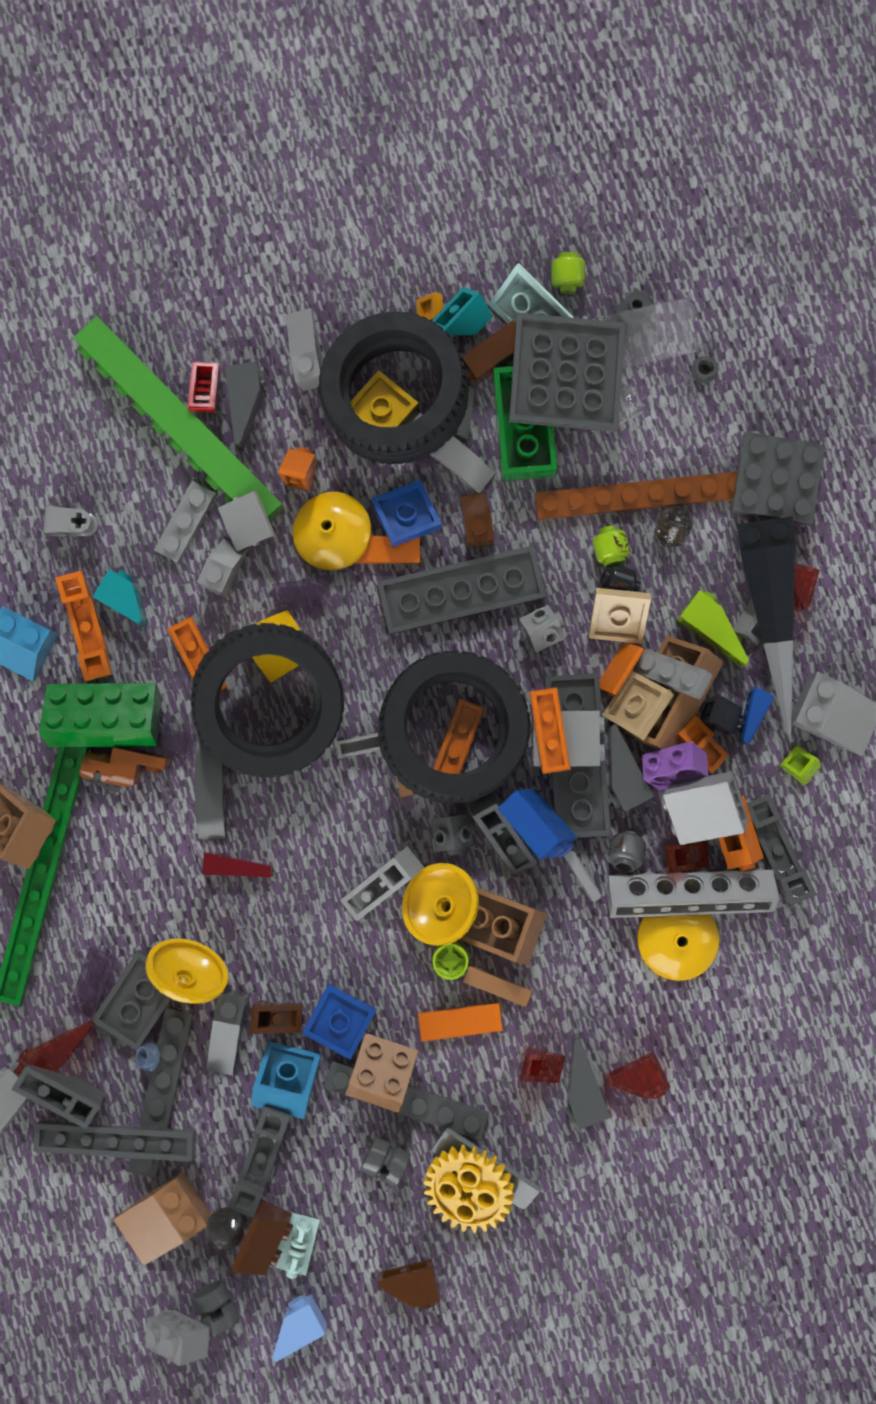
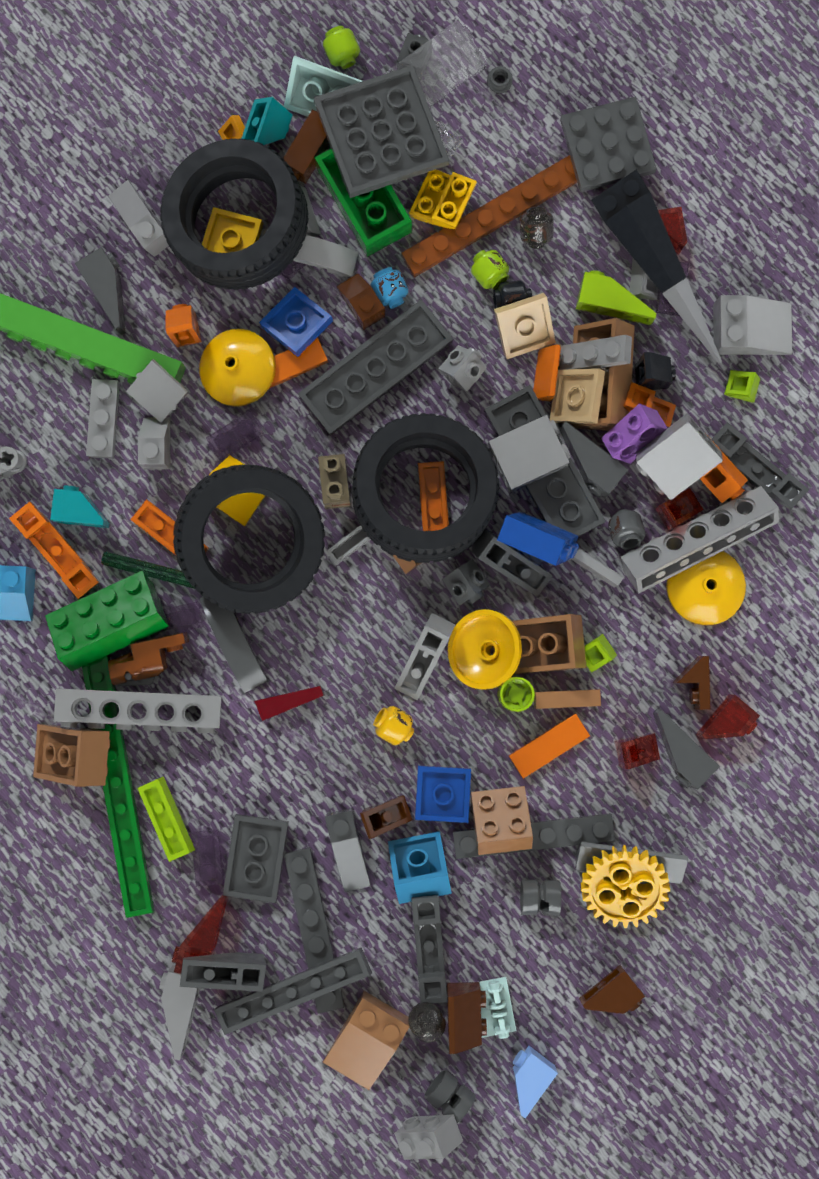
camera: 25 degrees left, 0 degrees up
(25, 790) = (68, 699): none -> light grey brick
(72, 924) = (166, 819): none -> lime plate
(147, 1057) = (288, 903): sand blue plate -> none
(153, 675) = (150, 569): none -> clear green axle
(186, 971) = (287, 810): yellow dish -> none
(204, 370) = (58, 277): slope -> none
(323, 935) = (393, 725): none -> yellow head
(373, 680) = (334, 481): none -> dark tan hips
(508, 521) = (390, 287): none -> dark azure head
(547, 955) = (598, 653): none -> lime slope
(549, 730) = (511, 451): orange tile -> none
(597, 459) = (442, 199): none -> yellow slope
(631, 1020) = (699, 675): none -> reddish brown slope
(755, 710) = (681, 355): blue slope -> none

